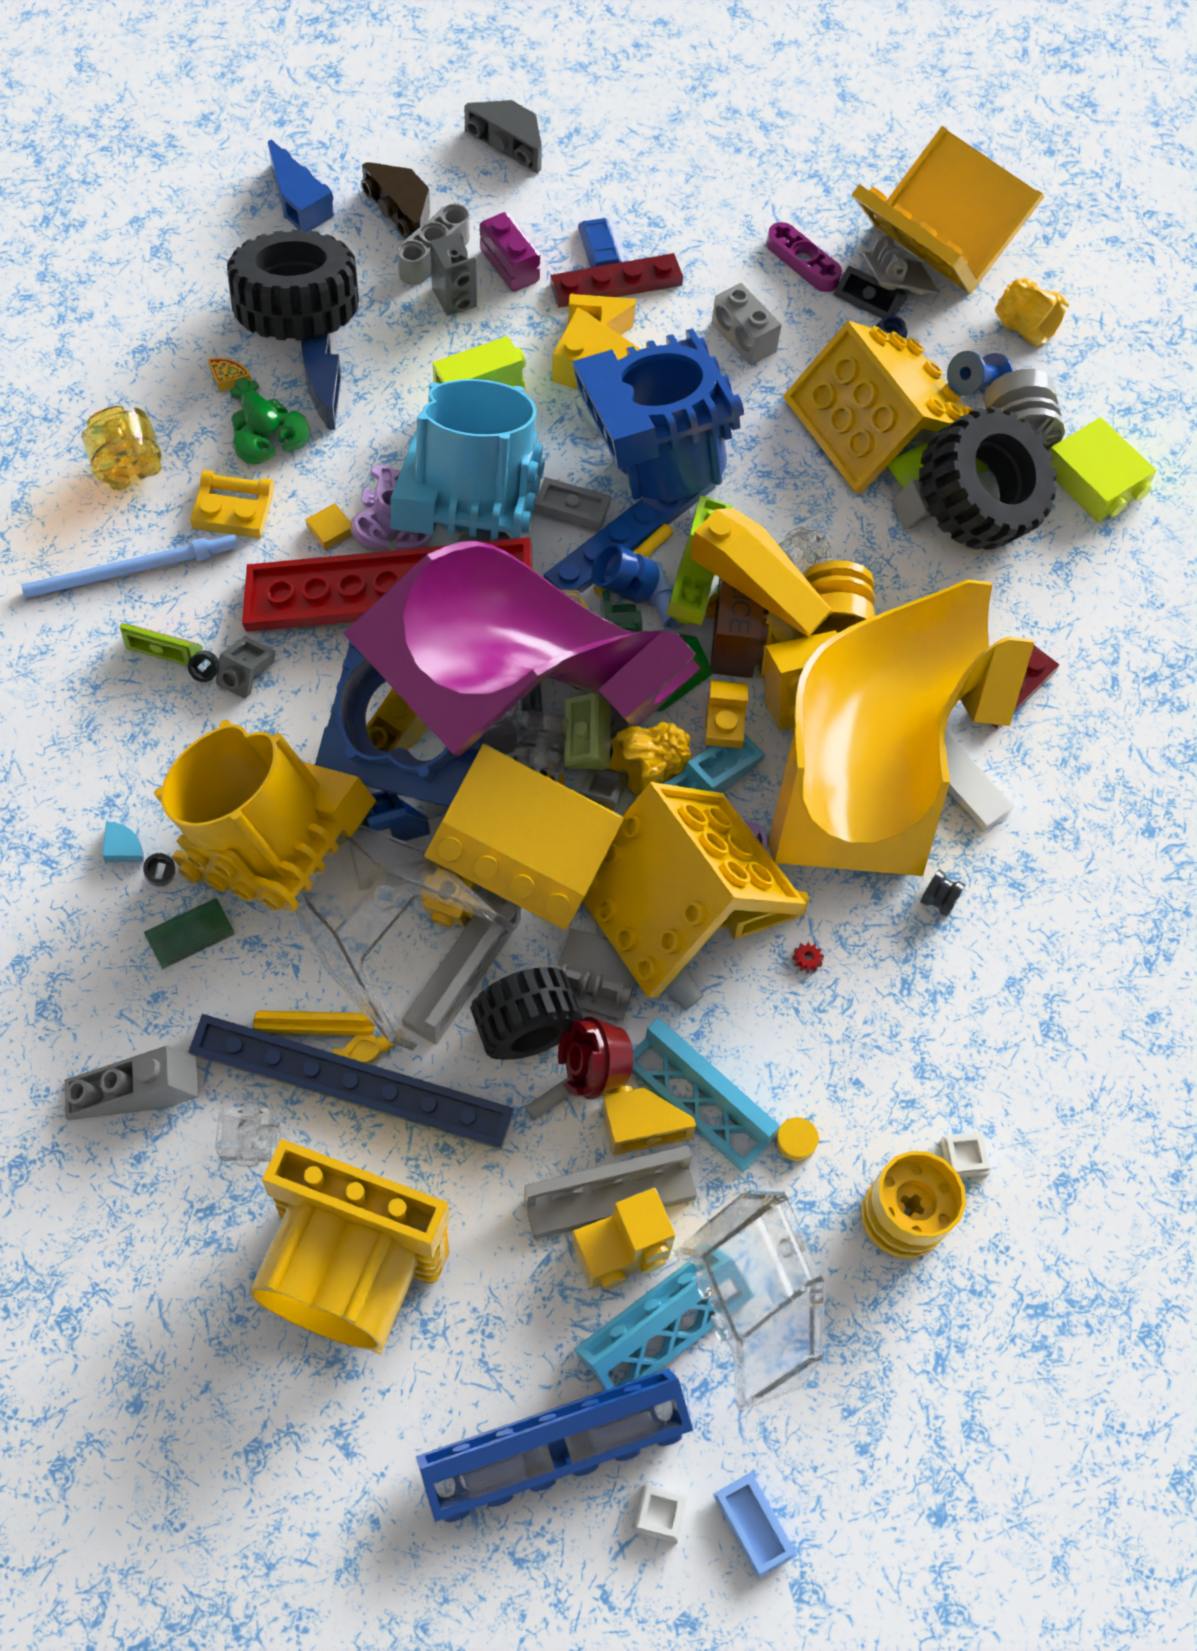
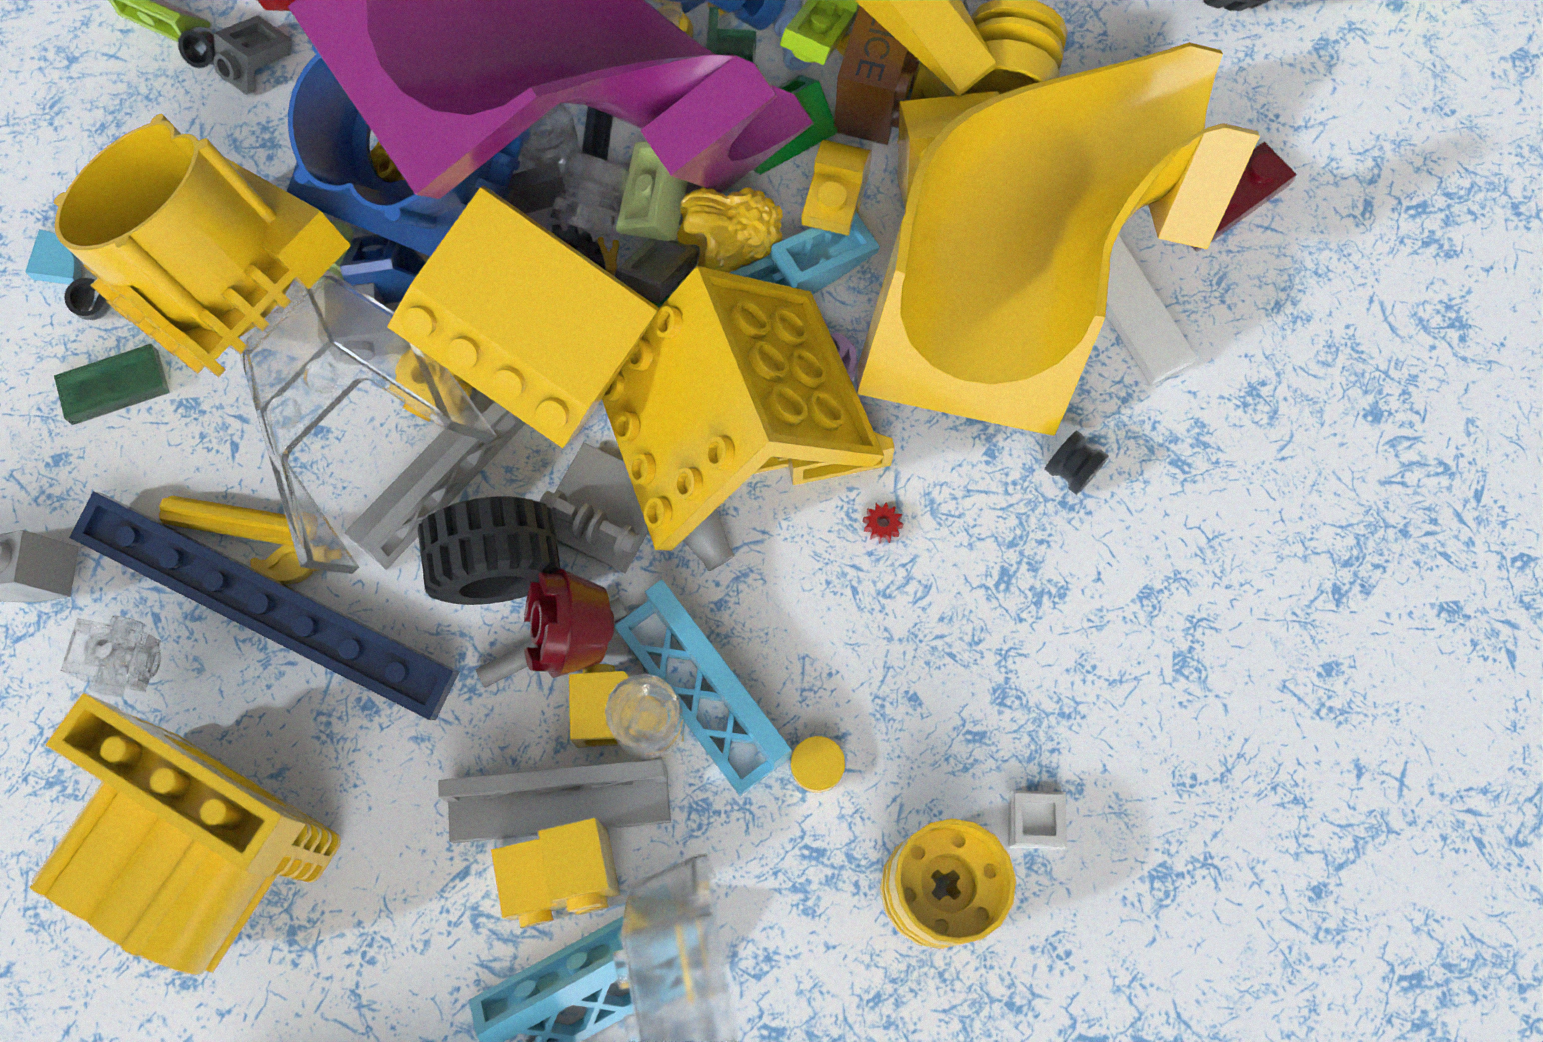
camera: 15 degrees right, 10 degrees up
(674, 1113) = (645, 717): none -> clear wheel

